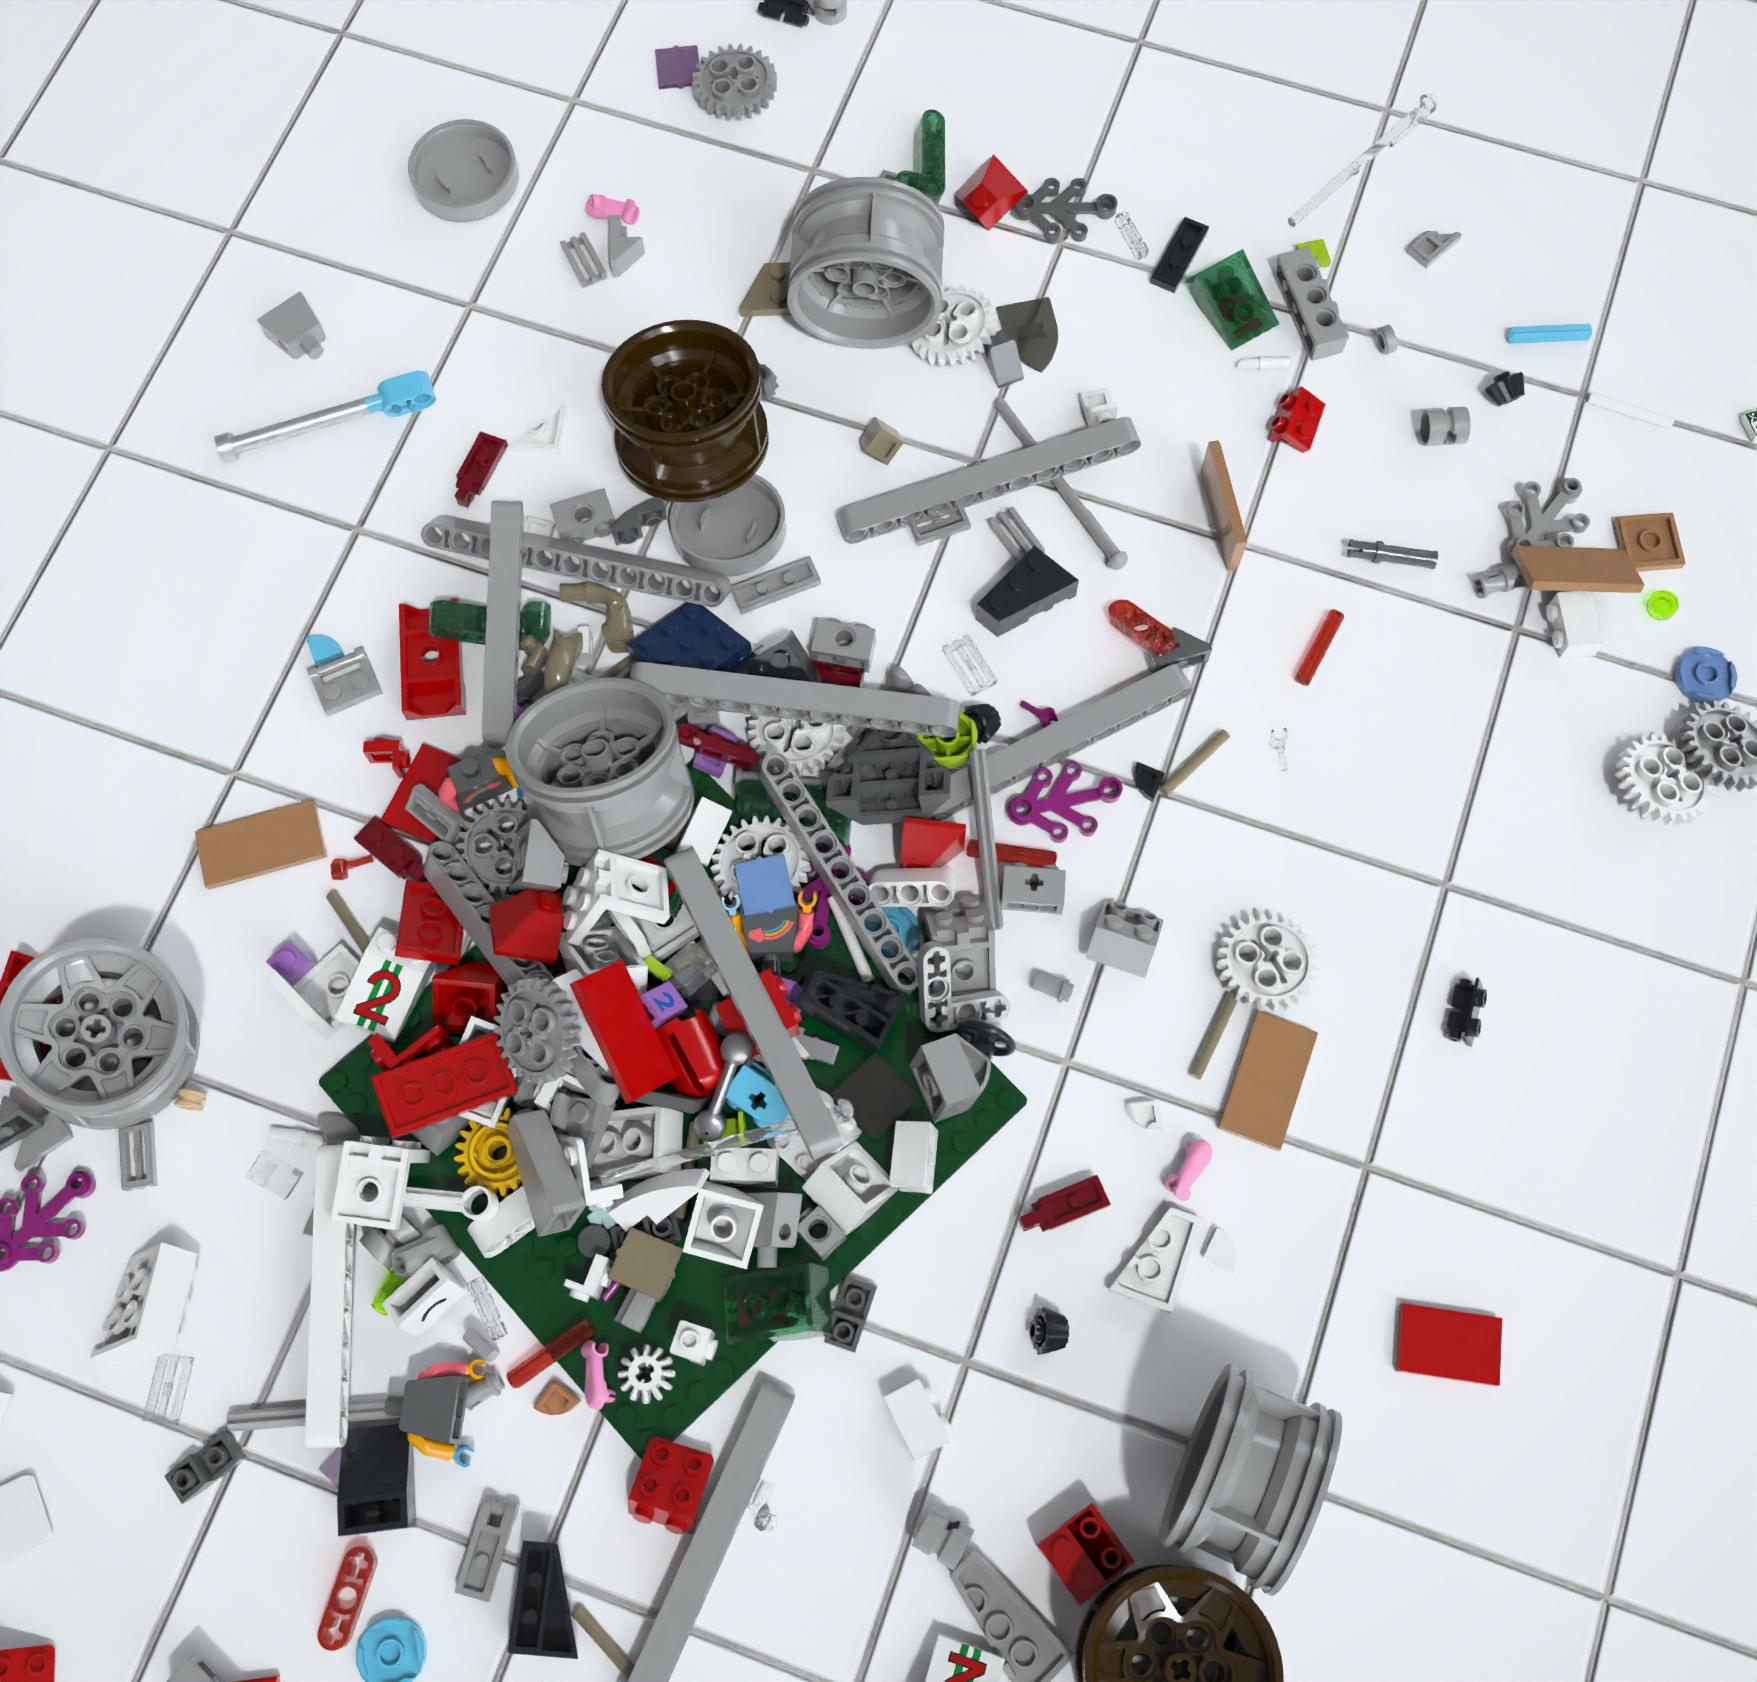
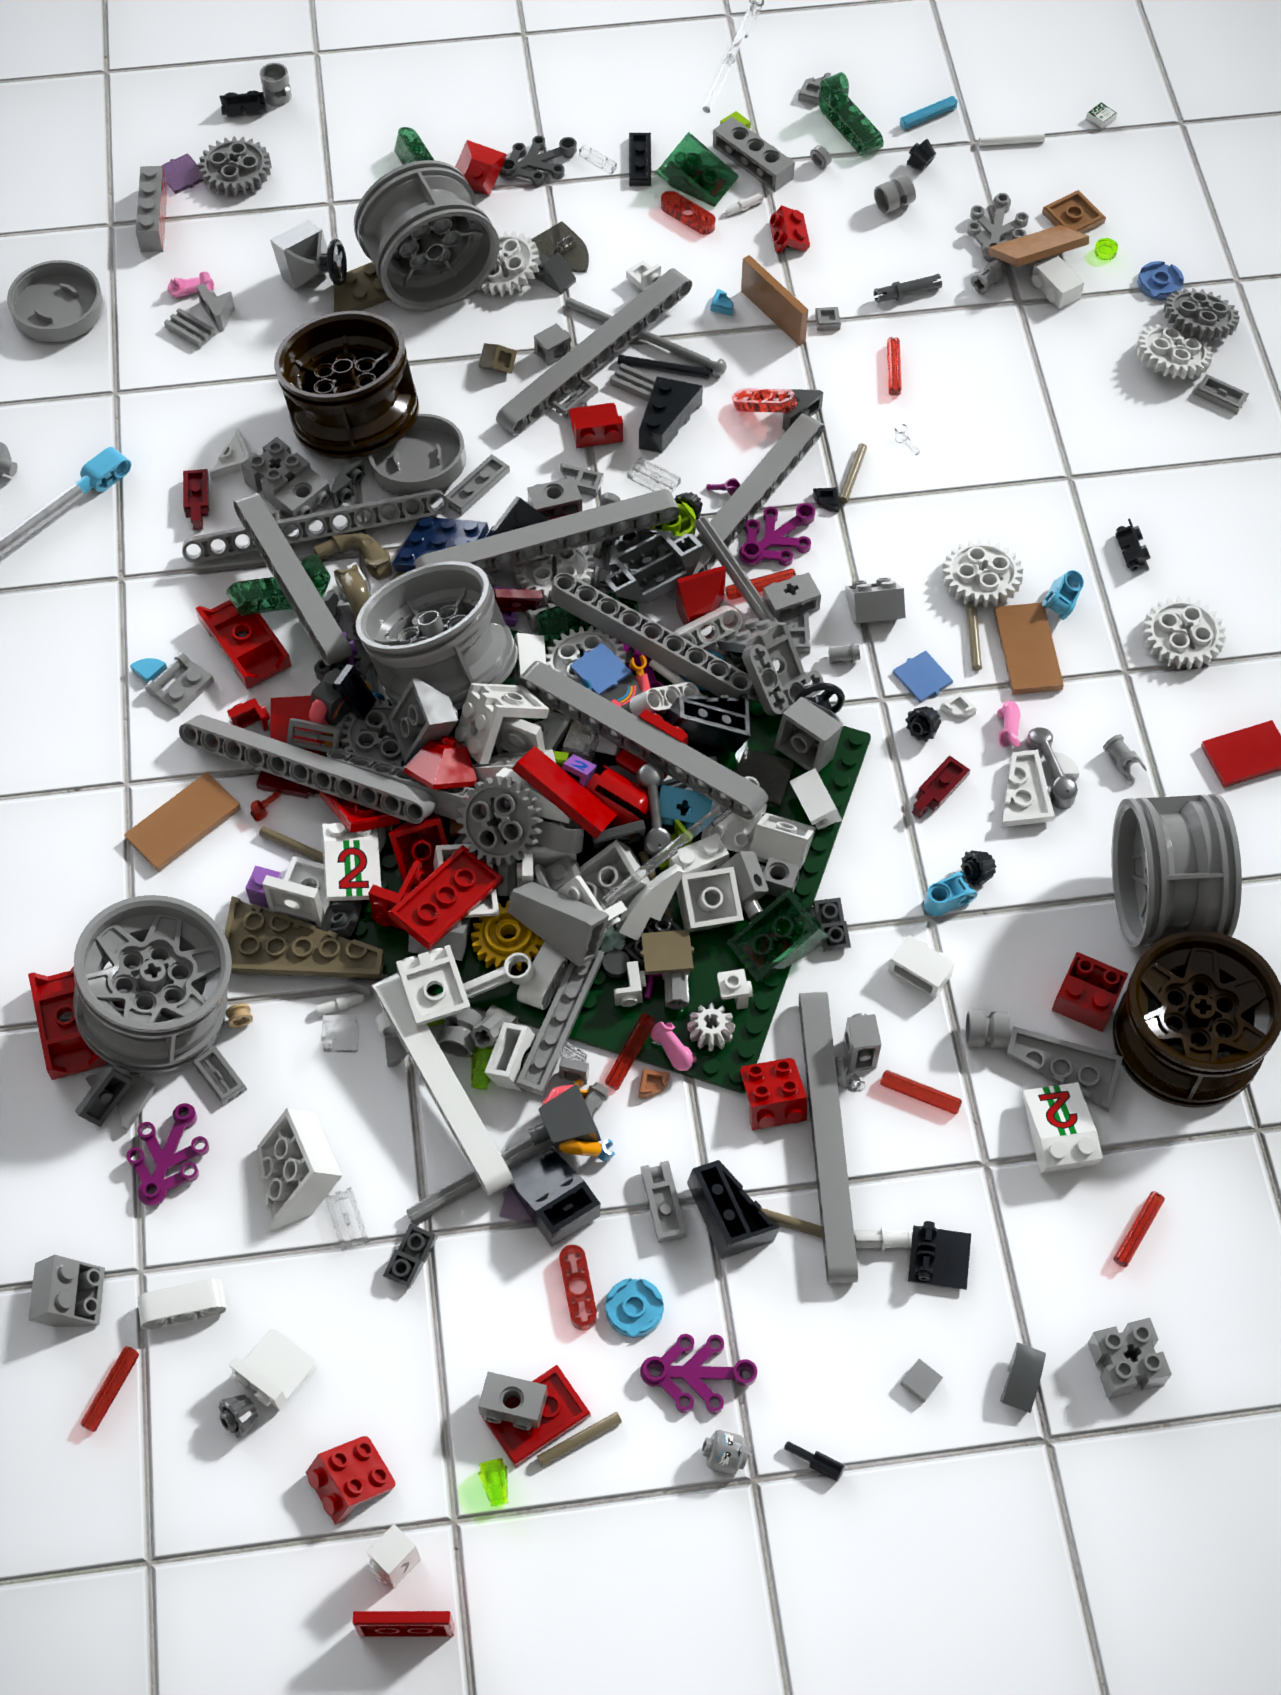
camera: 30 degrees left, 10 degrees down
(277, 1045) = (287, 946): none -> dark tan wing
(348, 1046) = (345, 917): none -> dark grey slope
(403, 855) = (308, 769): none -> light grey beam
(487, 1289) = (558, 1025): none -> light grey plate
(491, 788) = (355, 691): none -> black tile
(535, 652) = (328, 595): dark tan arm -> none
(571, 471) = (273, 468): none -> light grey brick
(619, 99) = (151, 208): none -> light grey brick
(742, 230) = (305, 255): none -> light grey piece
(793, 1481) = (862, 1042): none -> light grey brick
(800, 956) = (660, 699): none -> white beam
(831, 1569) = (921, 1092): none -> clear red axle
(892, 632) = (587, 480): none -> light grey tile
(941, 570) = (596, 425): none -> red bracket
(950, 449) = (552, 344): none -> light grey brick
(1001, 1346) = (952, 892): none -> medium azure piece
(1017, 936) = (800, 632): none -> light grey tile
(1059, 530) = (664, 366): none -> black bar
(1091, 1119) = (923, 723): none -> black piece
(1128, 1056) = (922, 676): none -> medium blue piece
(1168, 478) = (722, 303): none -> medium azure tile
(1194, 358) = (701, 219): none -> clear red beam
(1212, 1206) = (1063, 788): none -> flat silver piece
(1278, 551) = (827, 318): none -> light grey tile
(1297, 1274) = (1122, 754): none -> light grey piece
(1340, 1038) = (1064, 593): none -> medium azure piece
(1448, 301) = (847, 116): none -> clear green beam
(1491, 1158) = (1185, 625): none -> white gear
(1690, 863) = (1220, 397): none -> light grey tile

